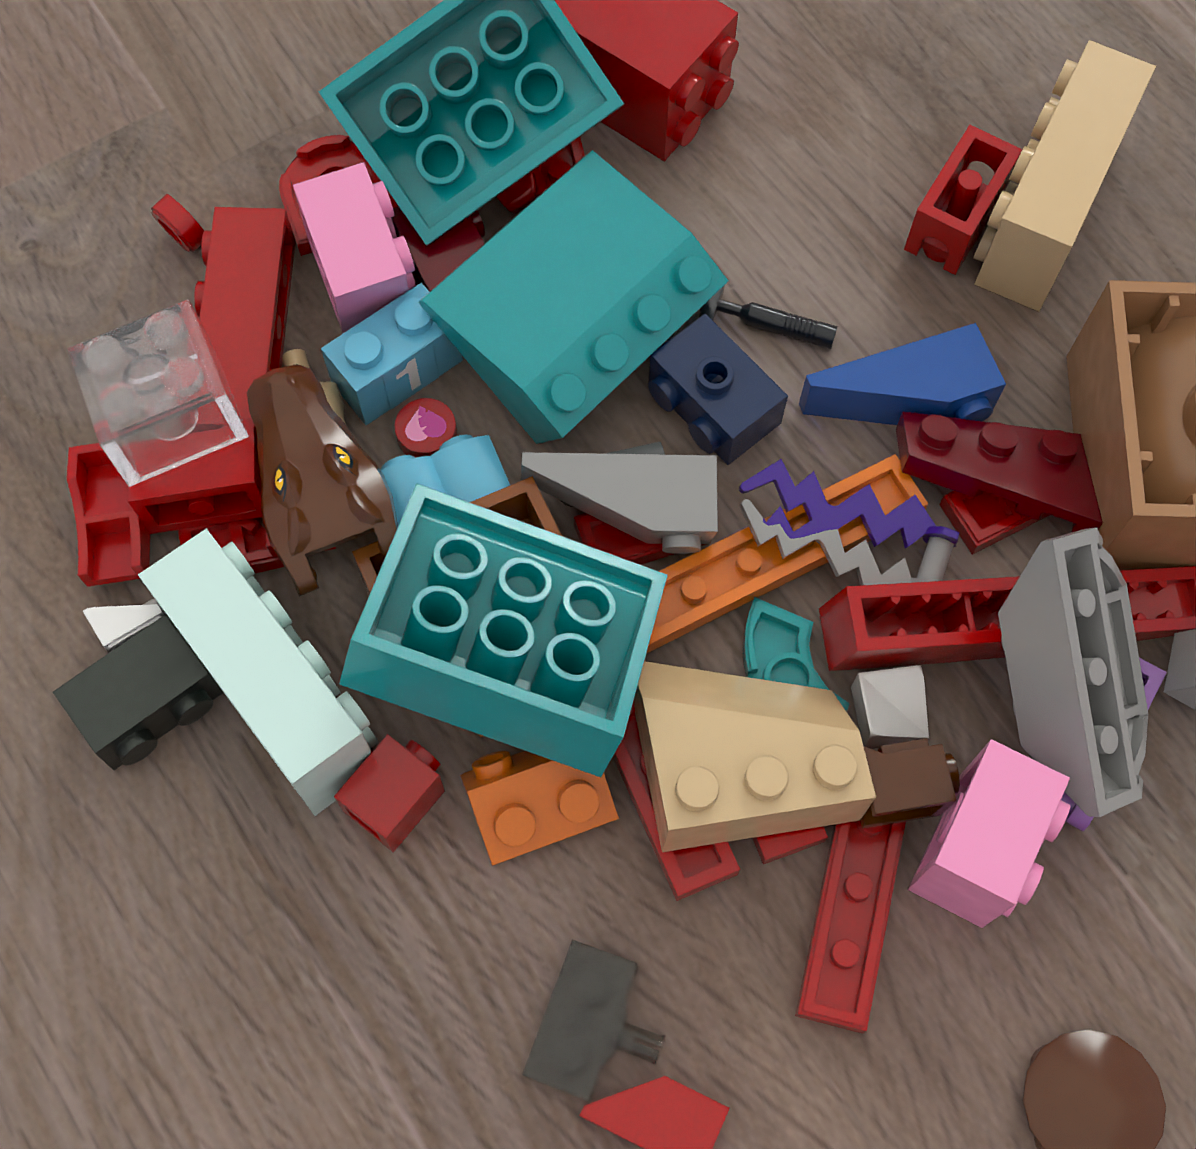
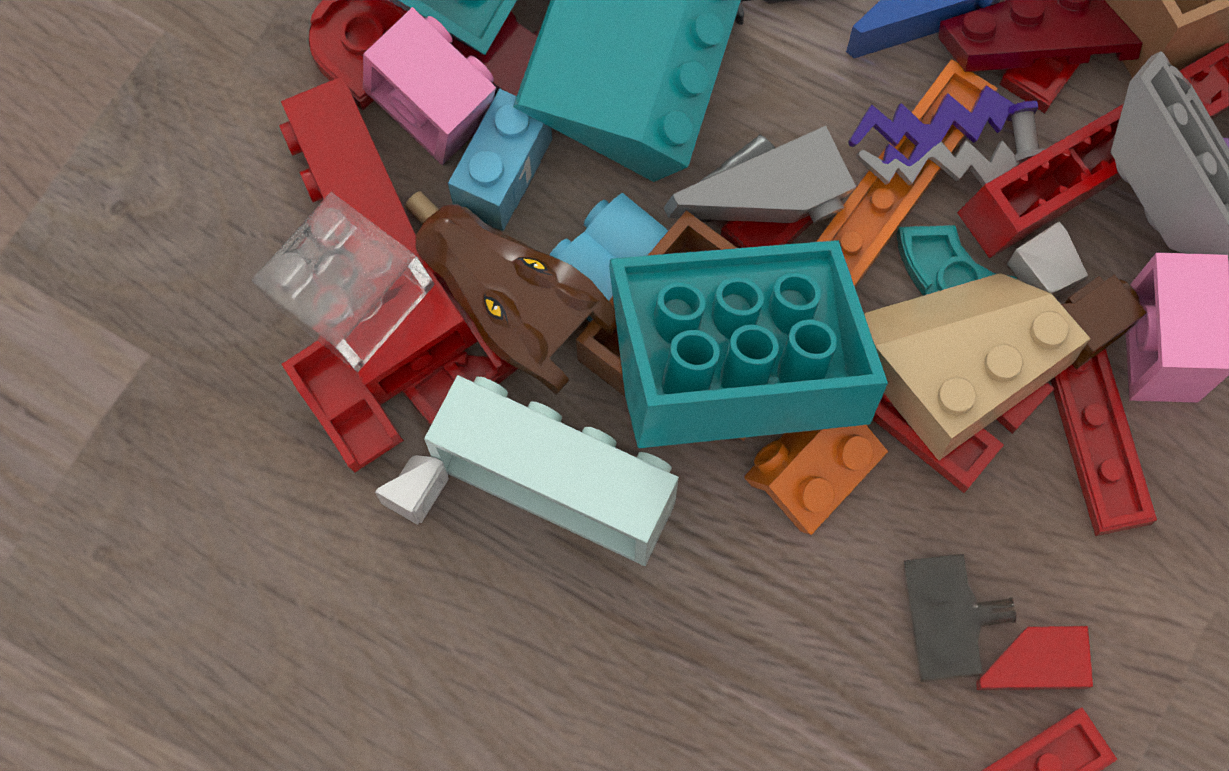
camera: 25 degrees left, 5 degrees up
(138, 694) = (456, 536): pearl dark grey brick -> none
(178, 223) = (248, 129): red tile -> none
(392, 790) = (703, 515): red brick -> none
(424, 426) = (558, 211): red tile -> none
(715, 390) = (780, 70): dark blue brick -> none

